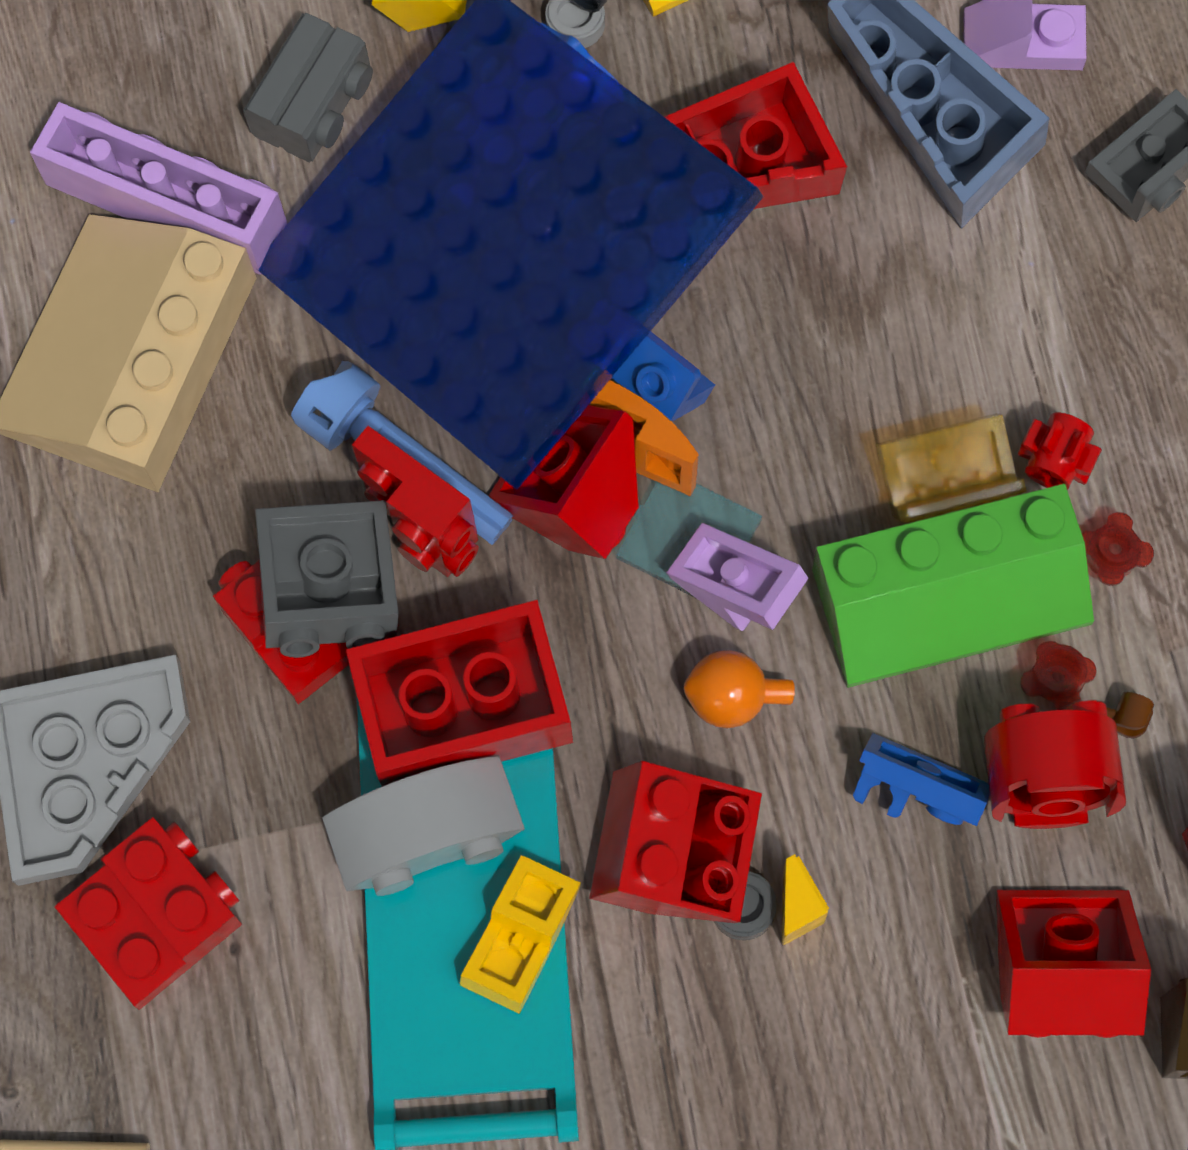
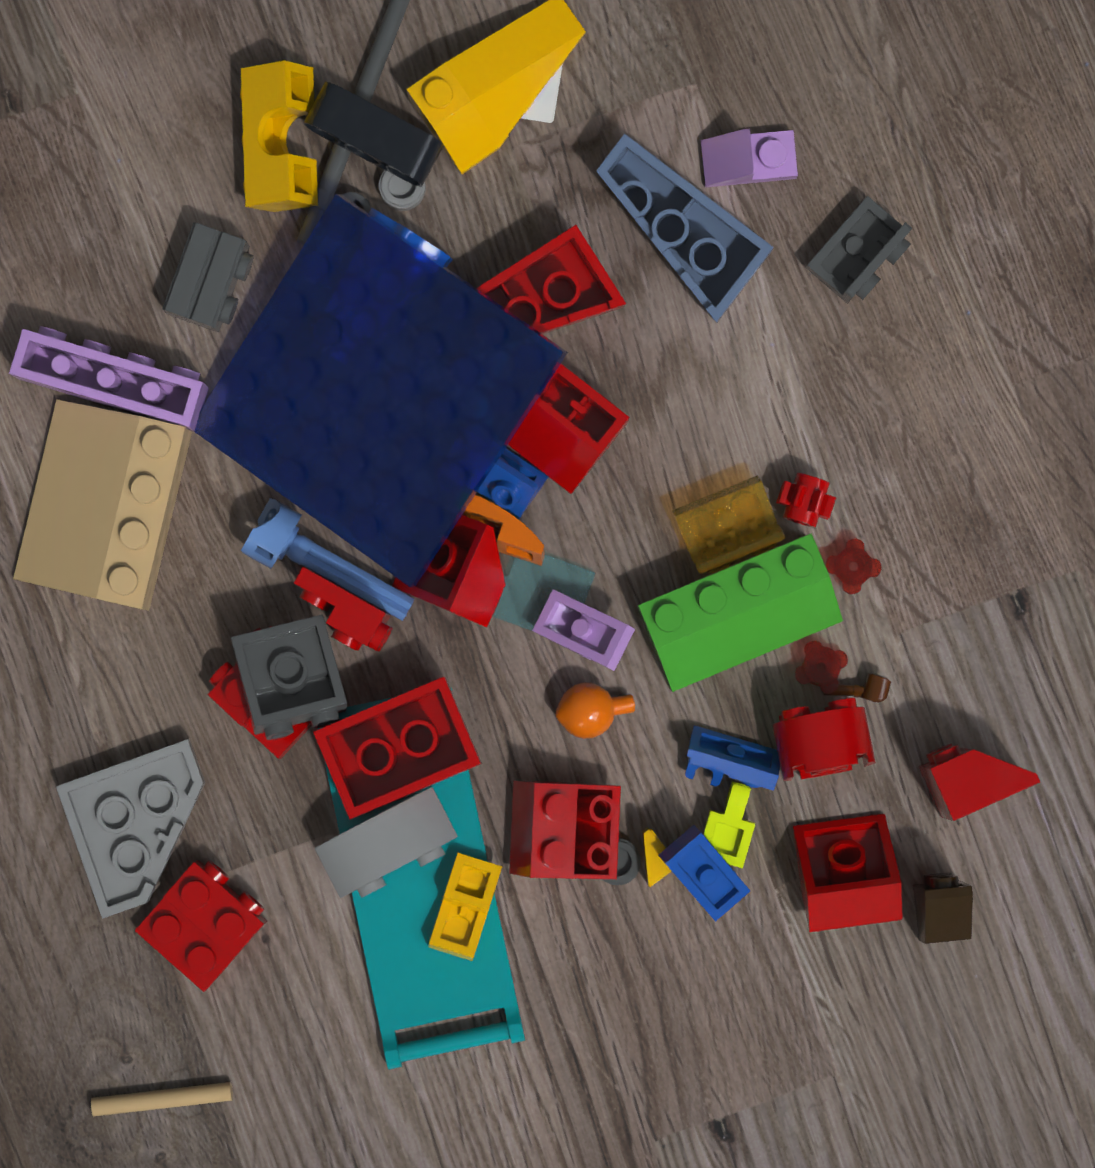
camera: 10 degrees left, 15 degrees up
(747, 317) = (568, 429): none -> red slope
(866, 925) = (704, 872): none -> blue plate
(904, 883) = (728, 830): none -> neon yellow plate

